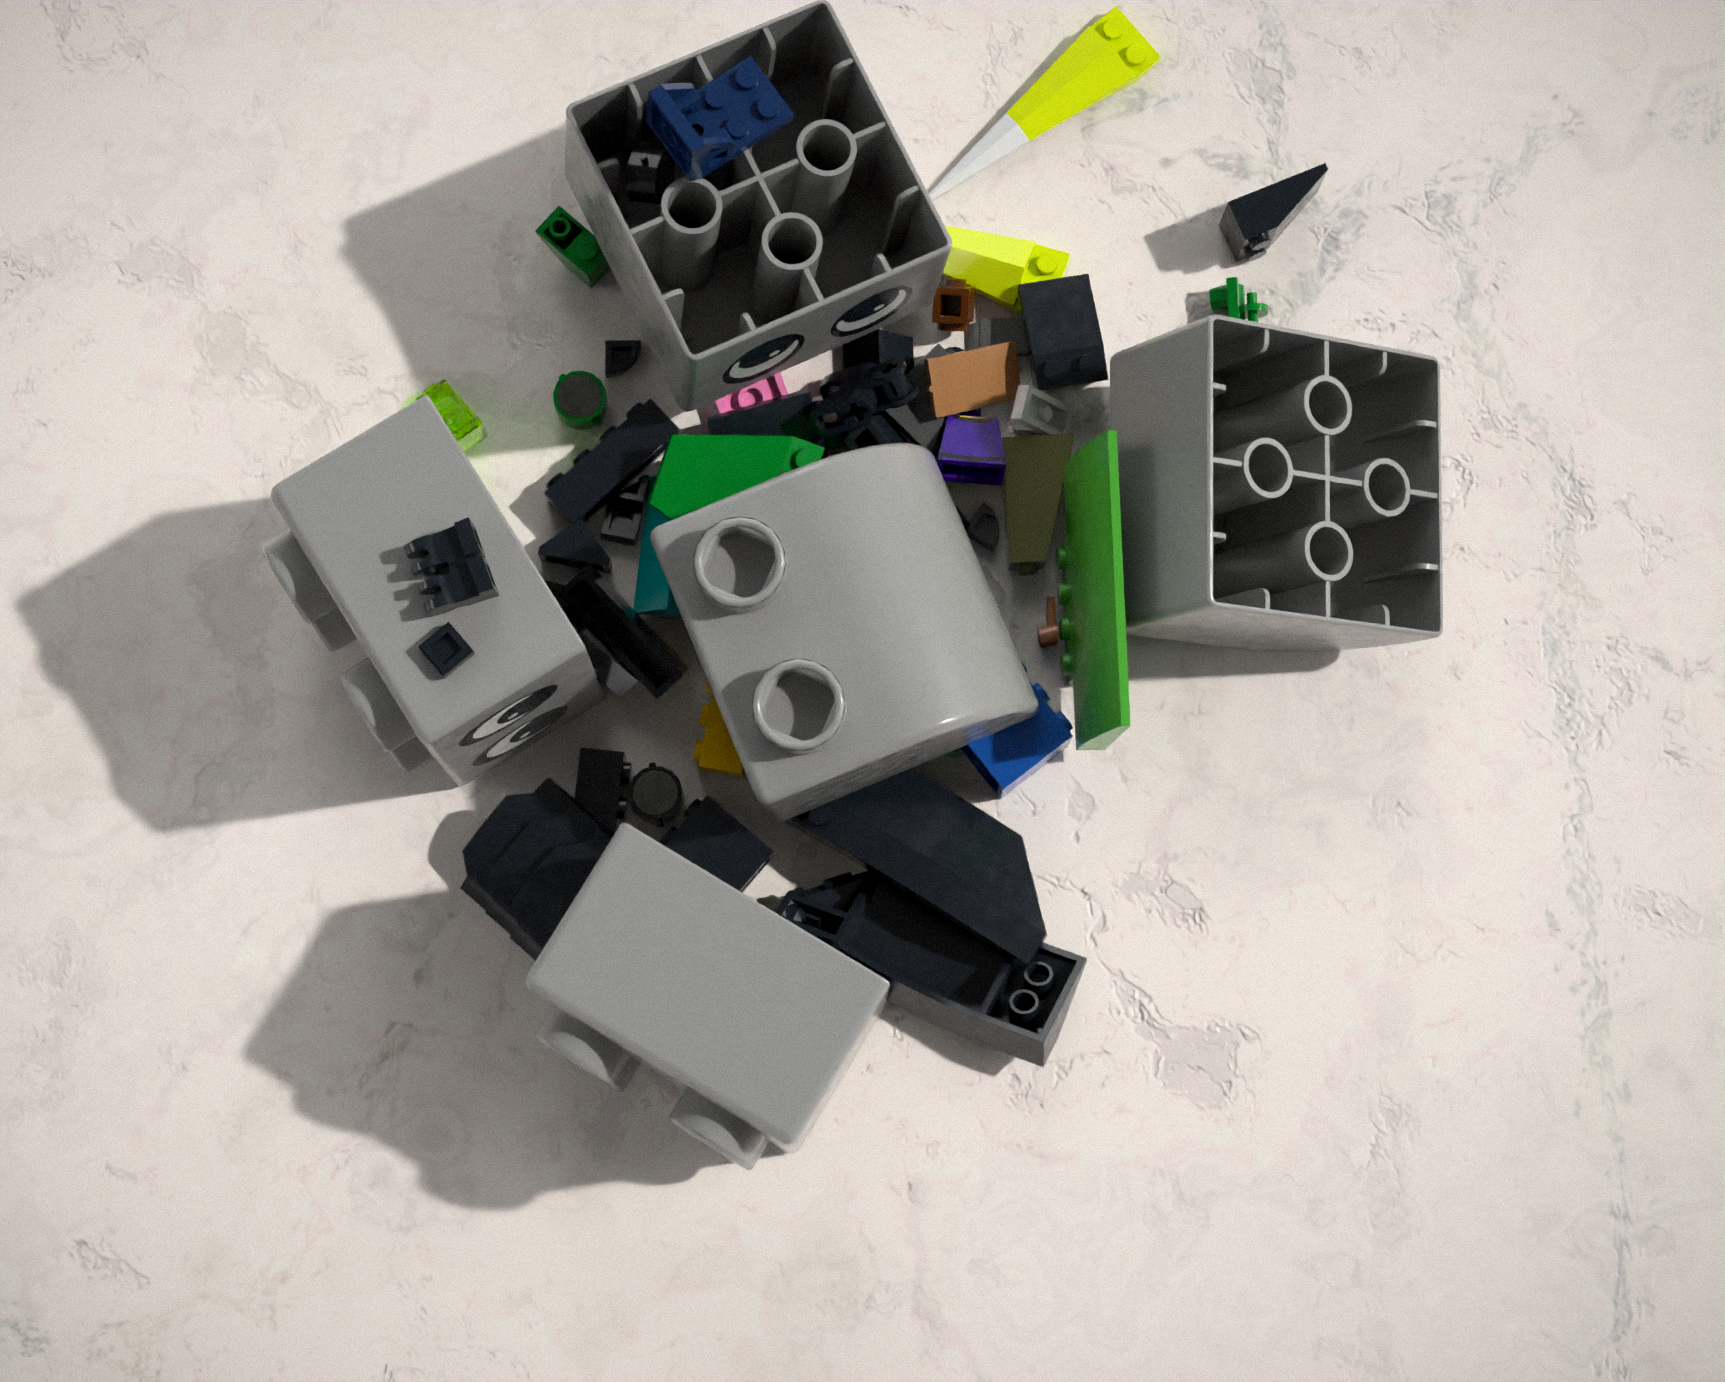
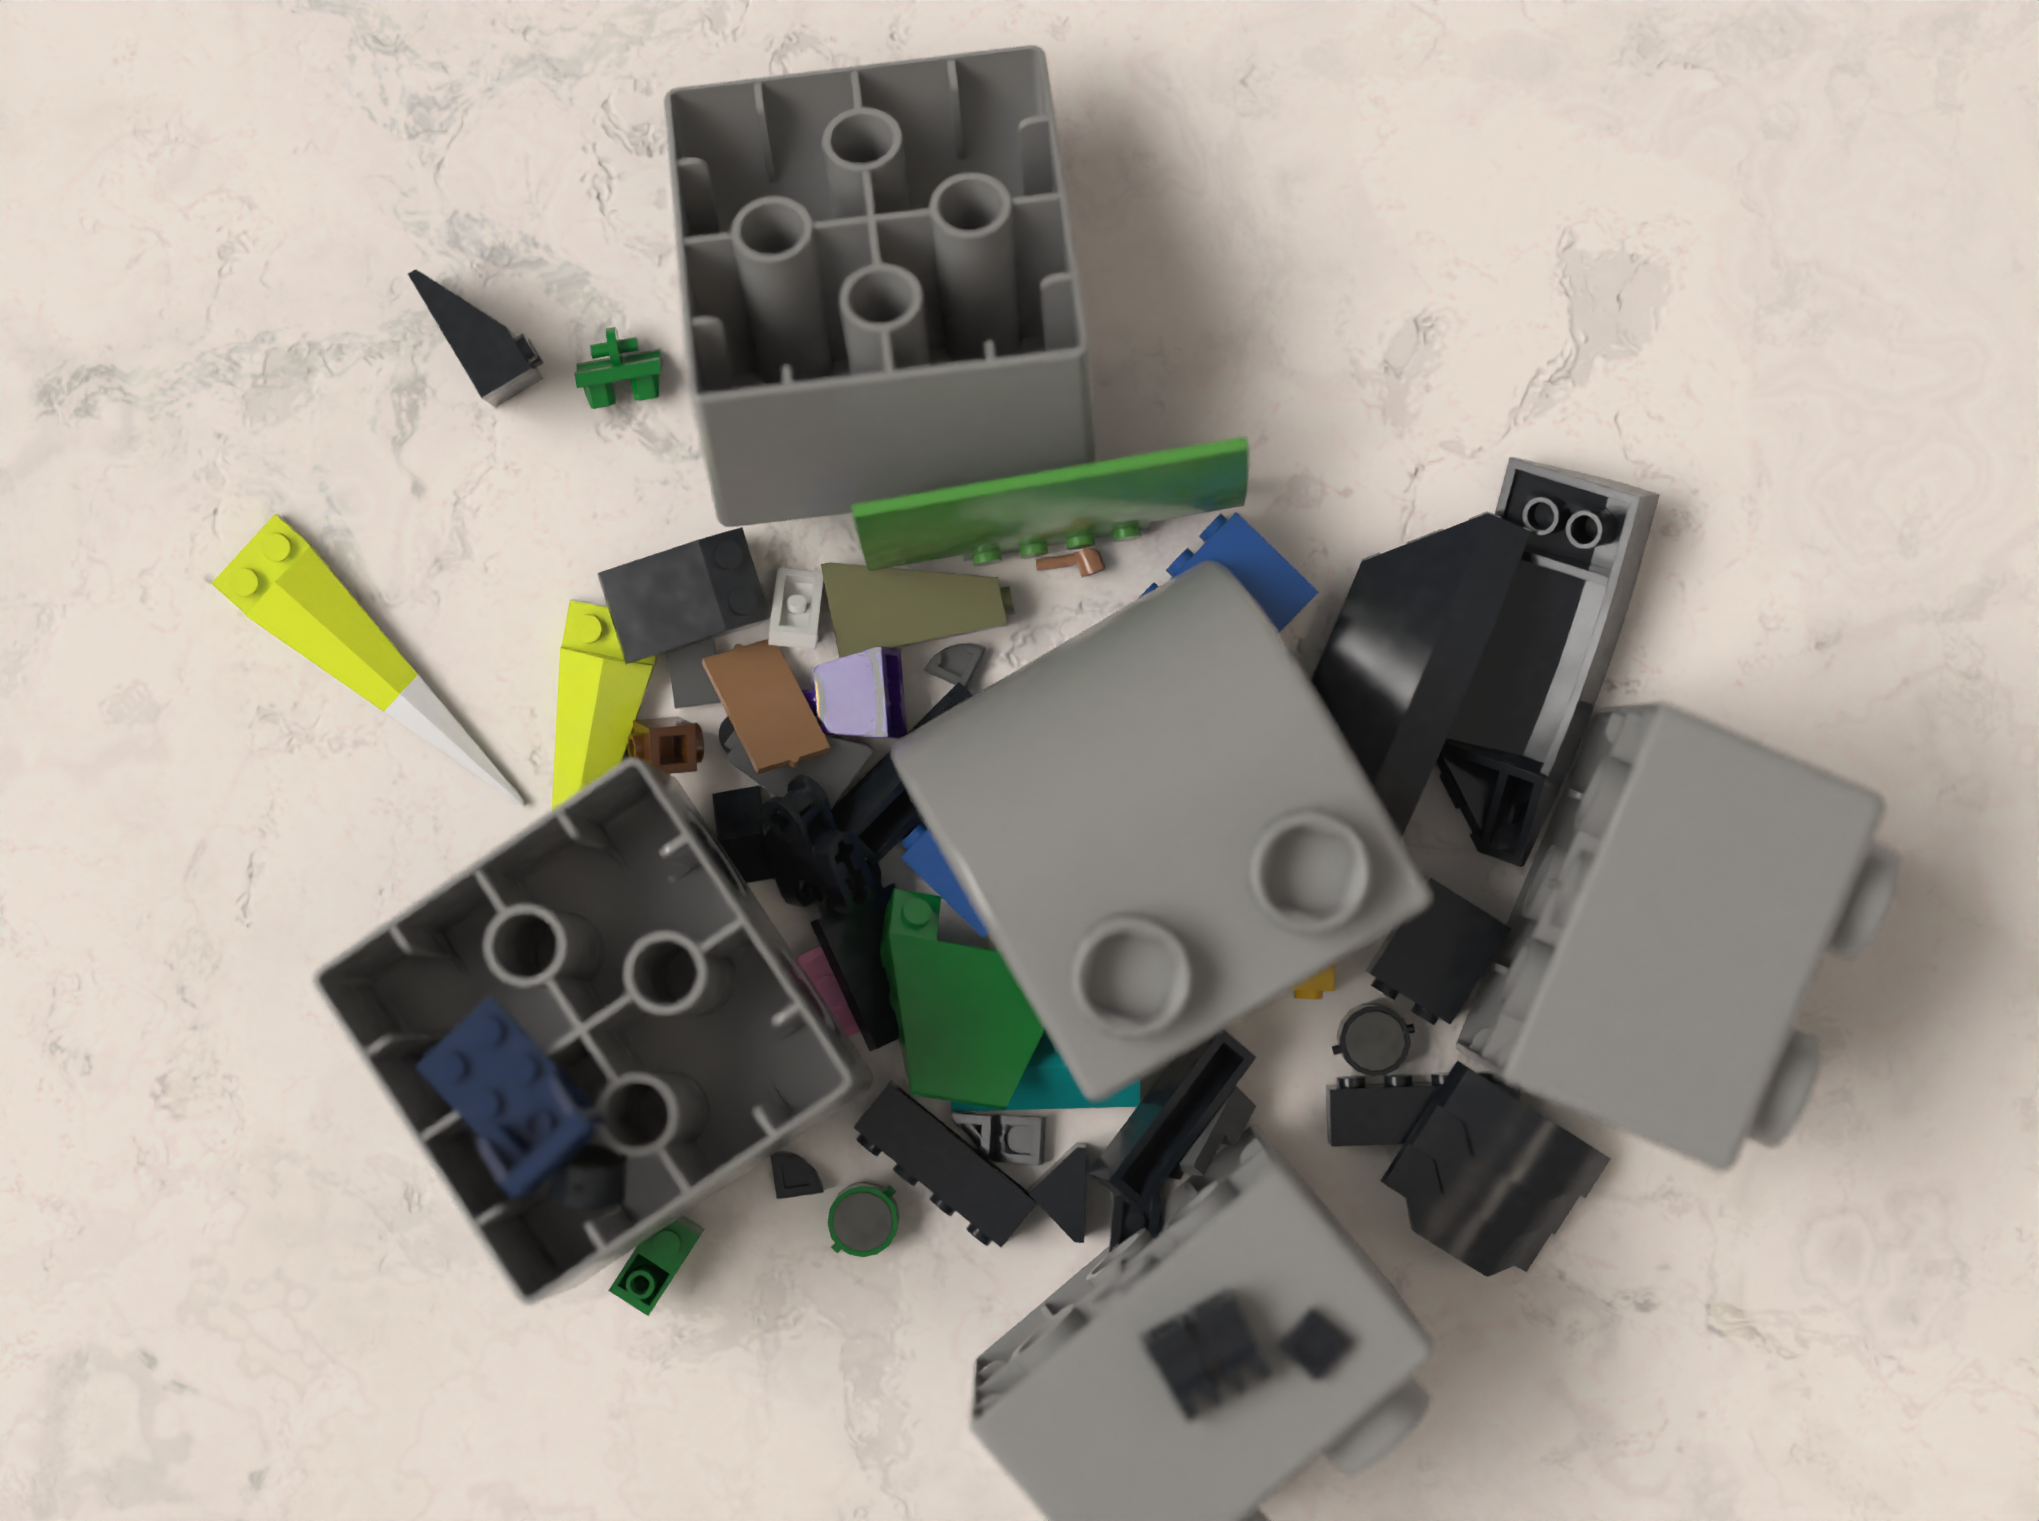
camera: 95 degrees left, 10 degrees up
(457, 415) = (913, 1384): clear neon green slope -> none

